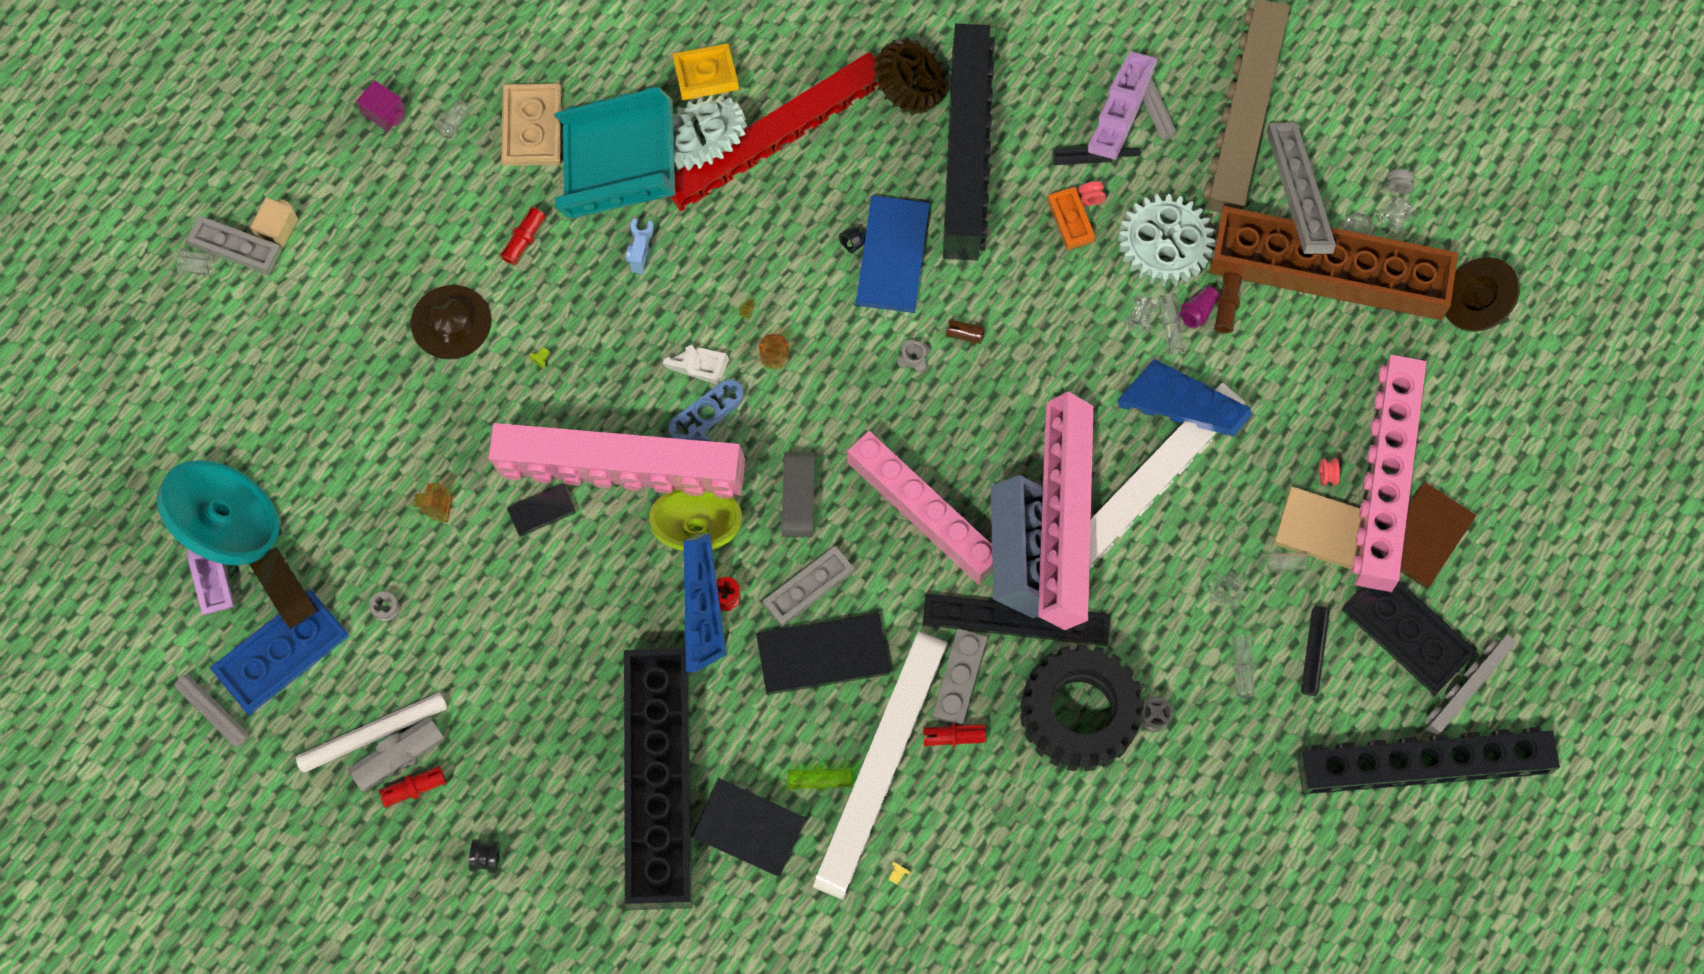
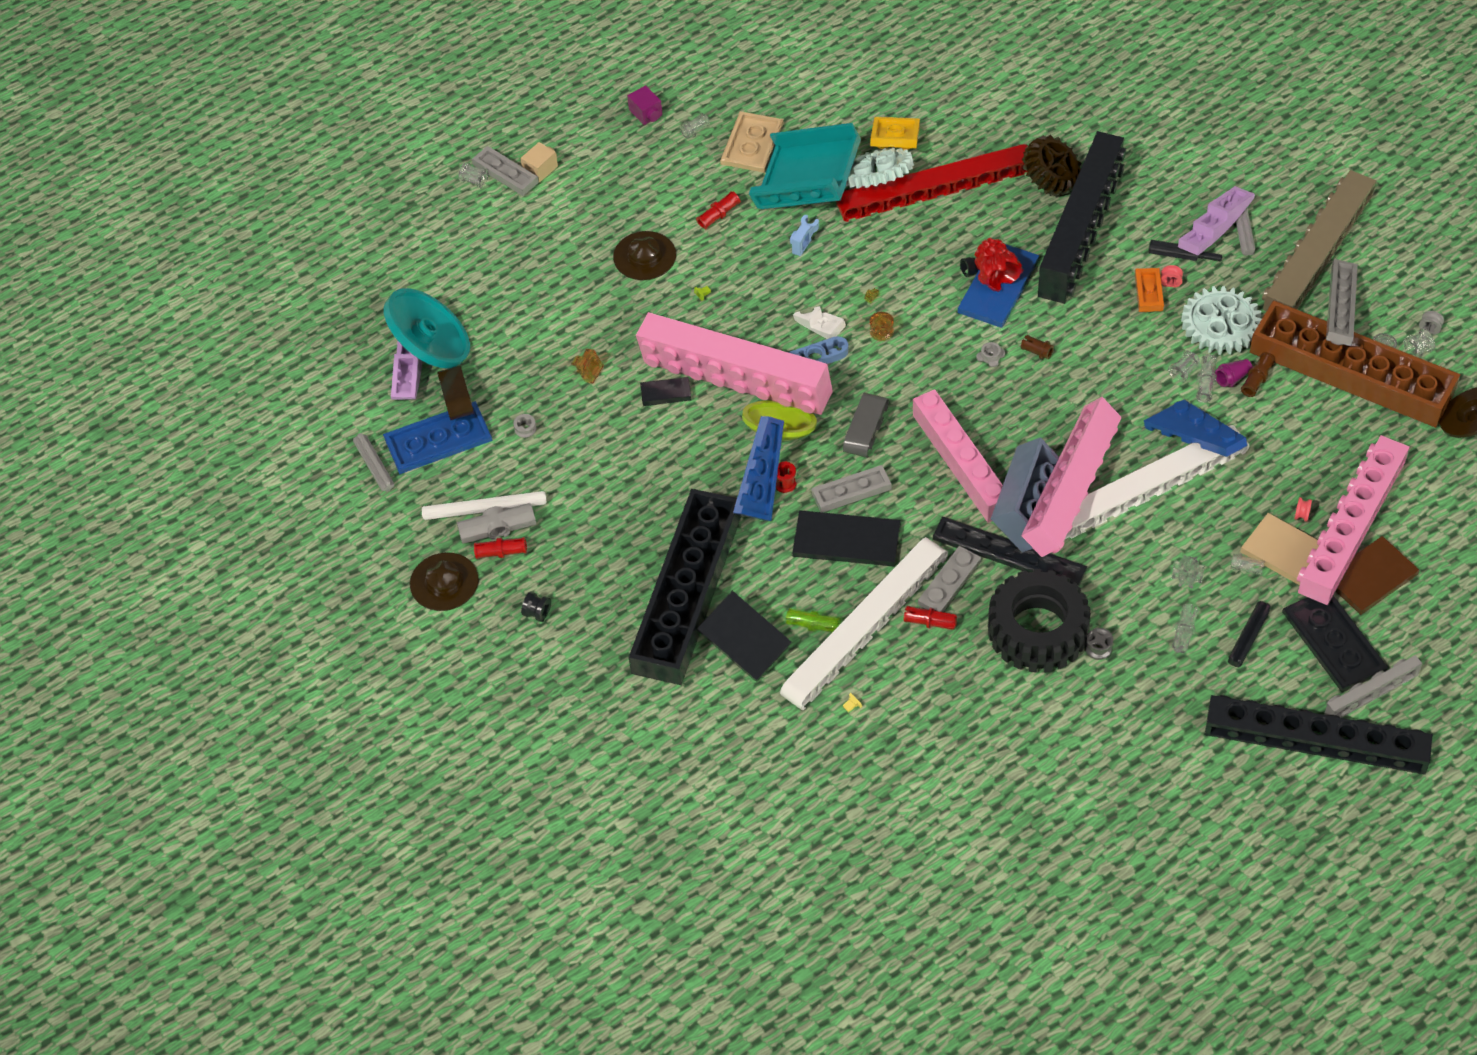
camera: 25 degrees right, 15 degrees down
(357, 850) = (444, 581): none -> dark brown hat
(886, 235) = (996, 264): none -> red hair

